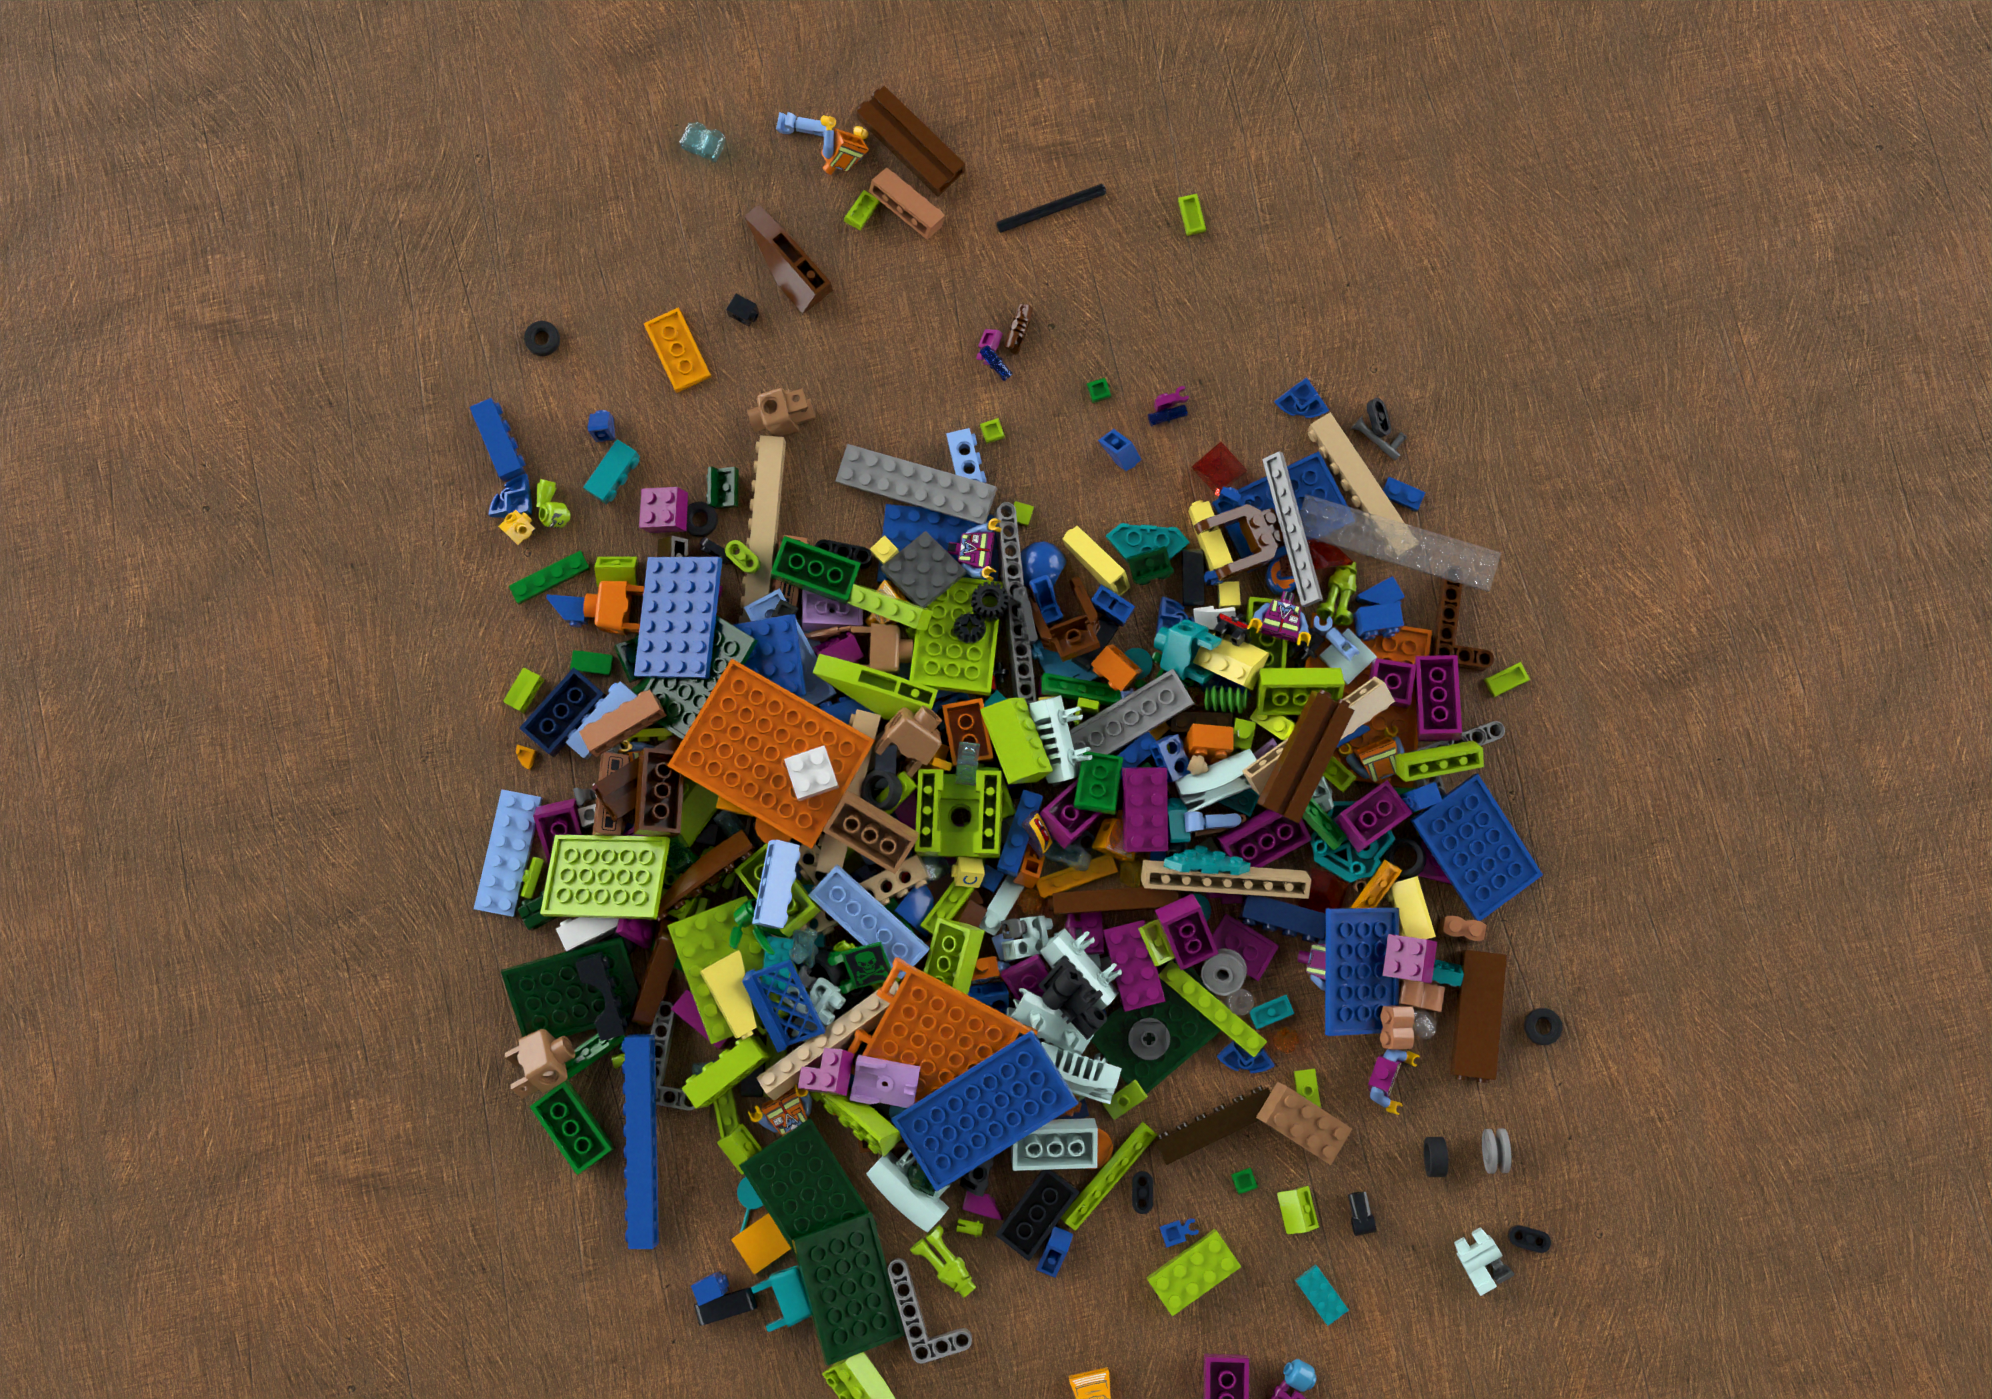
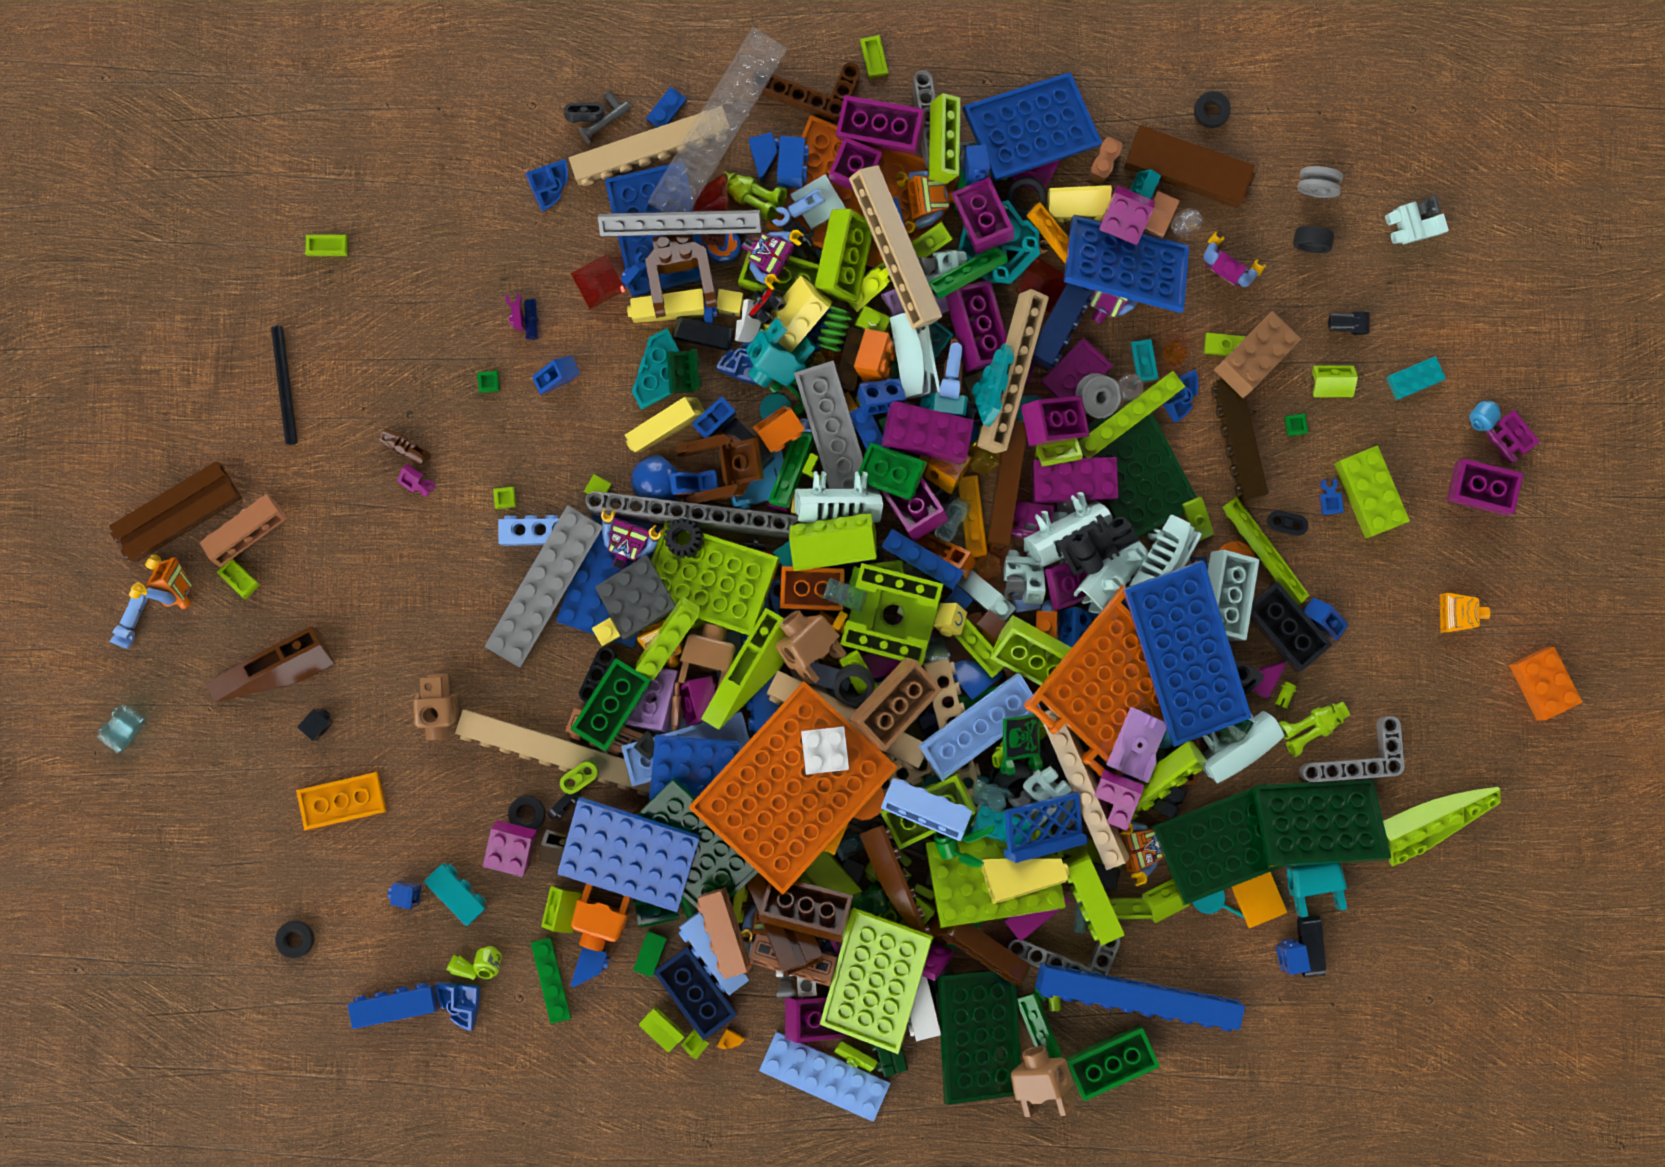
camera: 85 degrees left, 5 degrees up
(513, 722) = (694, 1044): none -> lime plate
(517, 526) = (491, 1003): yellow brick -> none
(594, 971) = (967, 1009): black arch -> none
(722, 487) = (499, 783): dark green bracket -> none
(835, 1130) = (1168, 805): none -> black wheel
(962, 632) = (711, 571): black gear -> none
(995, 362) = (435, 477): clear blue axle -> none
(1025, 614) = (705, 505): dark grey hinge -> none
(1039, 833) = (927, 541): slope -> none
(1157, 1030) = (1140, 472): dark grey plate -> none
(1197, 765) = (895, 371): tan plate -> none
(1306, 755) = (915, 262): reddish brown brick -> none
(1397, 1027) = (1186, 244): nougat brick -> none
(1528, 1238) = (1403, 174): black plate -> none

